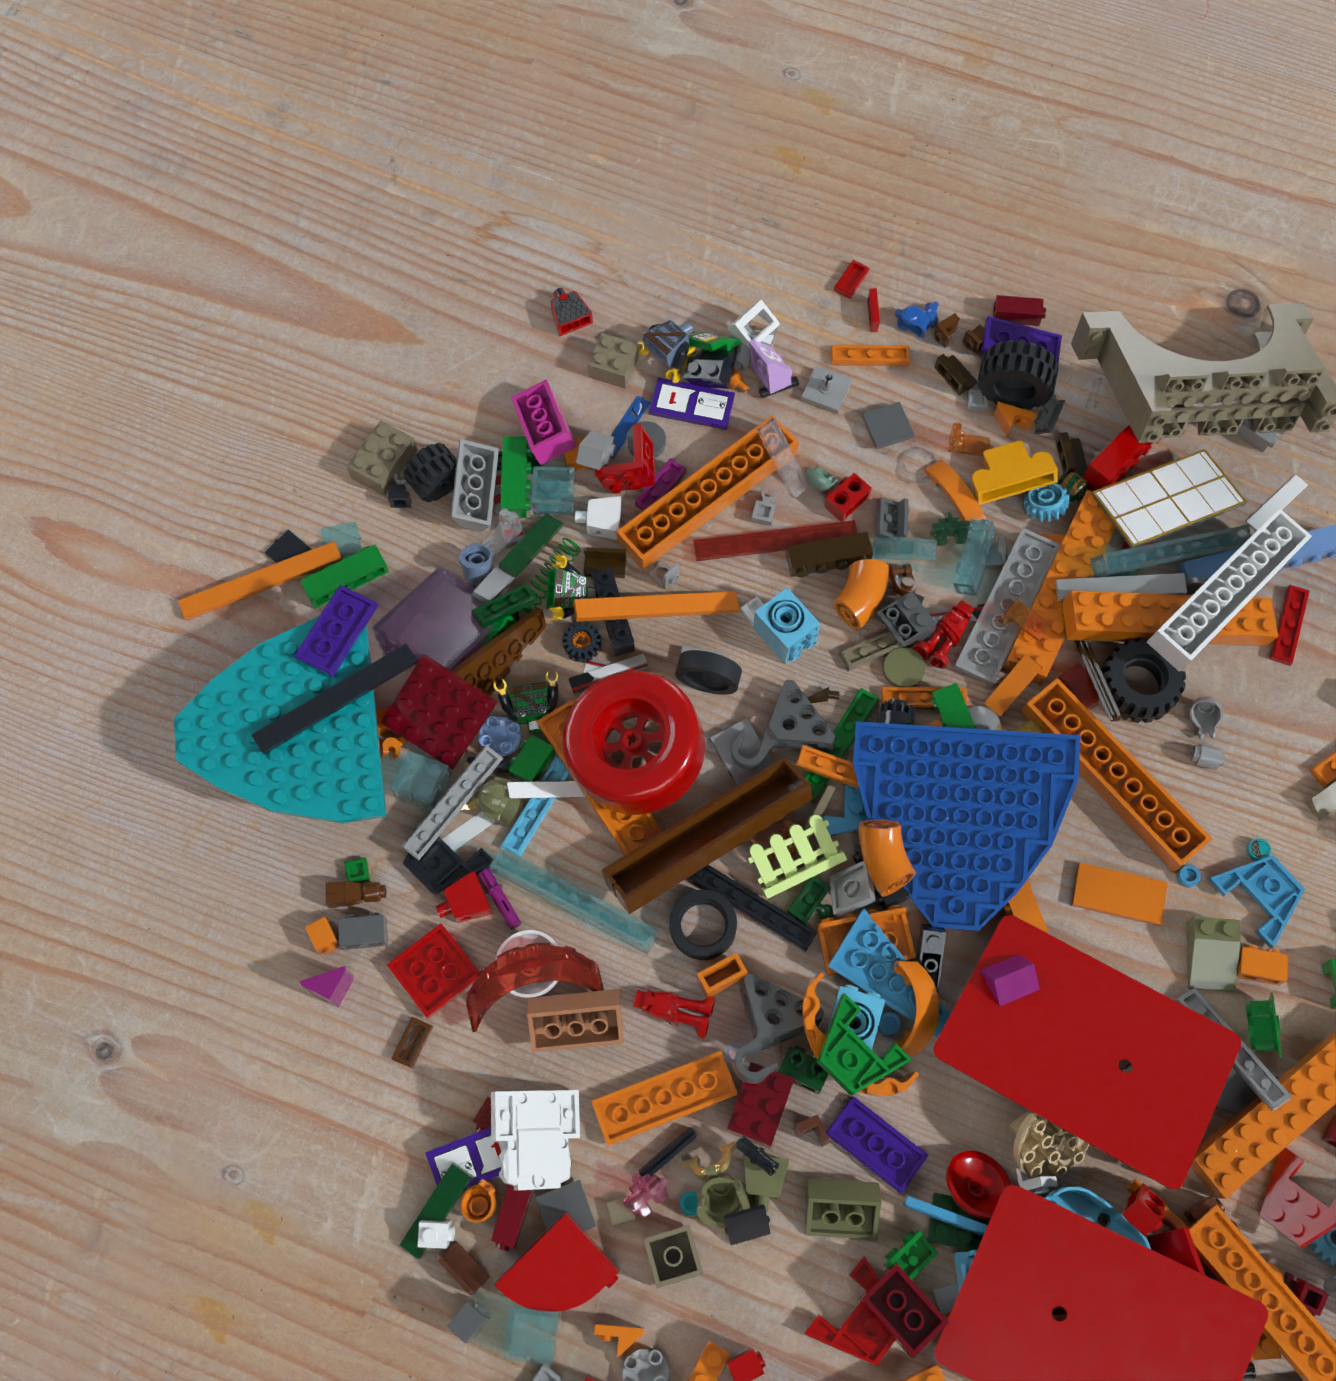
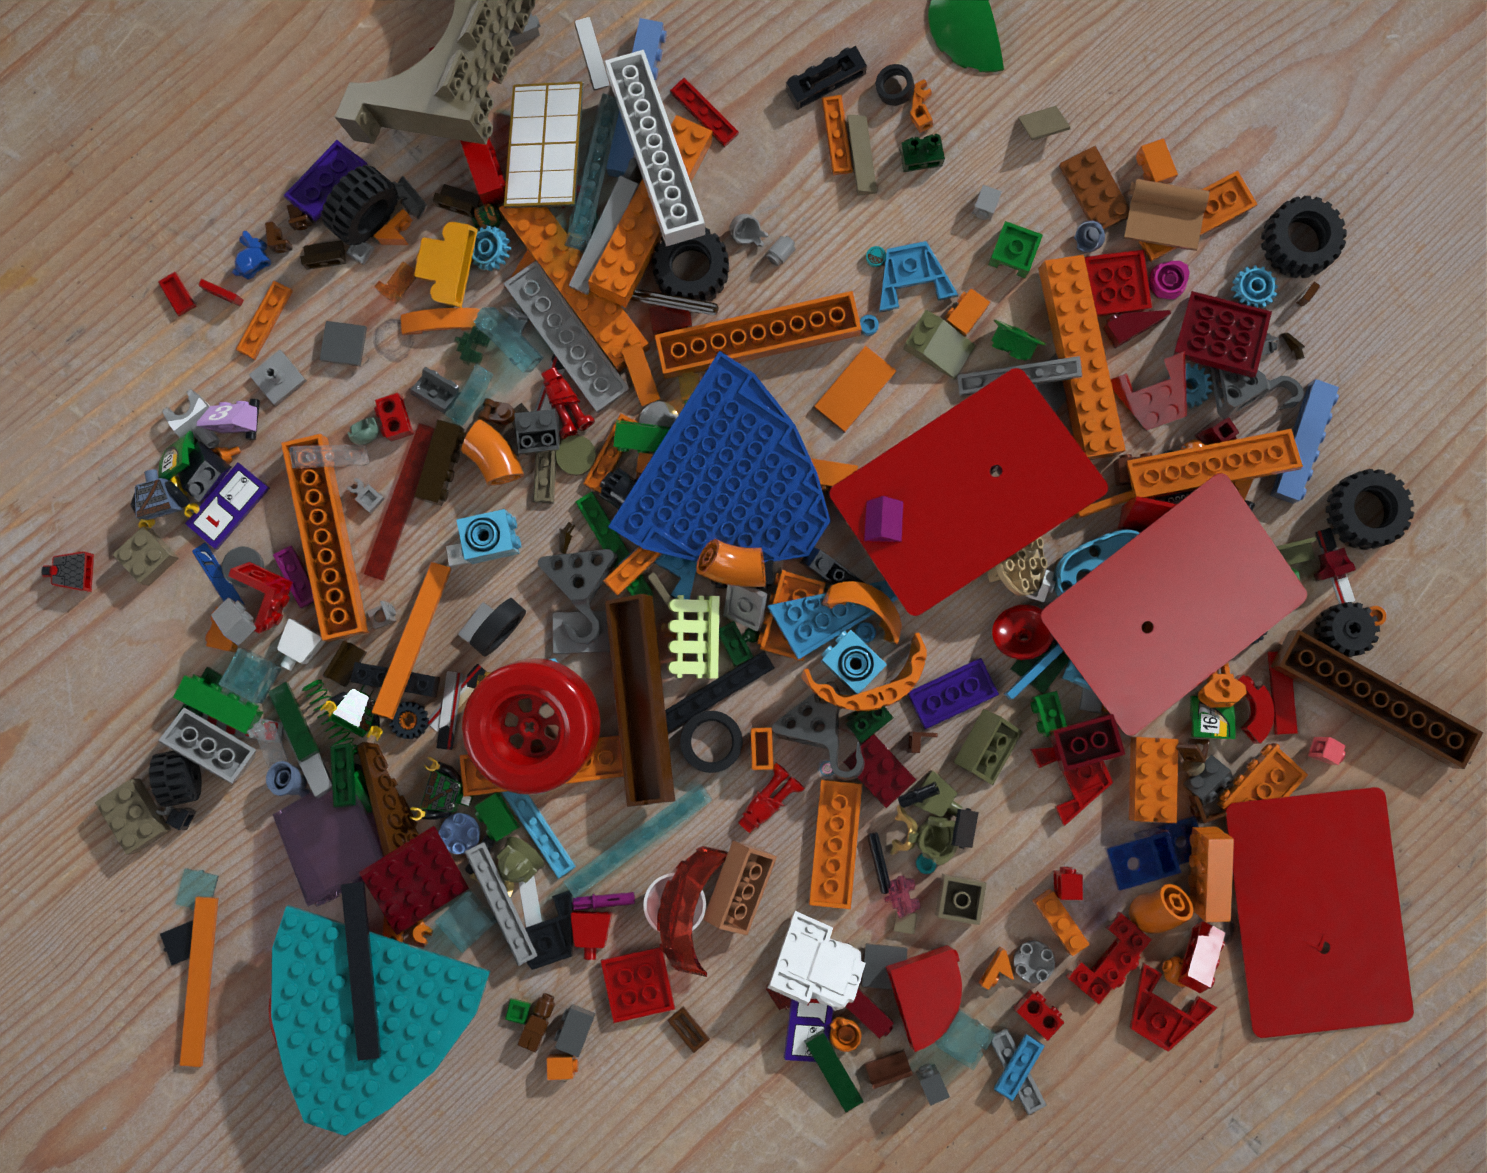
camera: 55 degrees left, 15 degrees up
(330, 985) = (610, 1081): magenta slope -> none
(336, 631) = (295, 941): dark purple tile -> none
(350, 572) = (235, 903): green brick -> none
(435, 1233) = (852, 1080): white bracket -> none
(543, 422) = (177, 653): dark pink brick -> none
(544, 789) = (528, 822): white sticker -> none
(760, 308) = (168, 413): white tile -> none
(849, 1058) = (885, 684): green wing -> none
(1019, 309) = (291, 163): dark red brick -> none
(1026, 619) = (589, 331): clear orange bracket -> none
(1144, 1210) = (1105, 518): red brick -> none

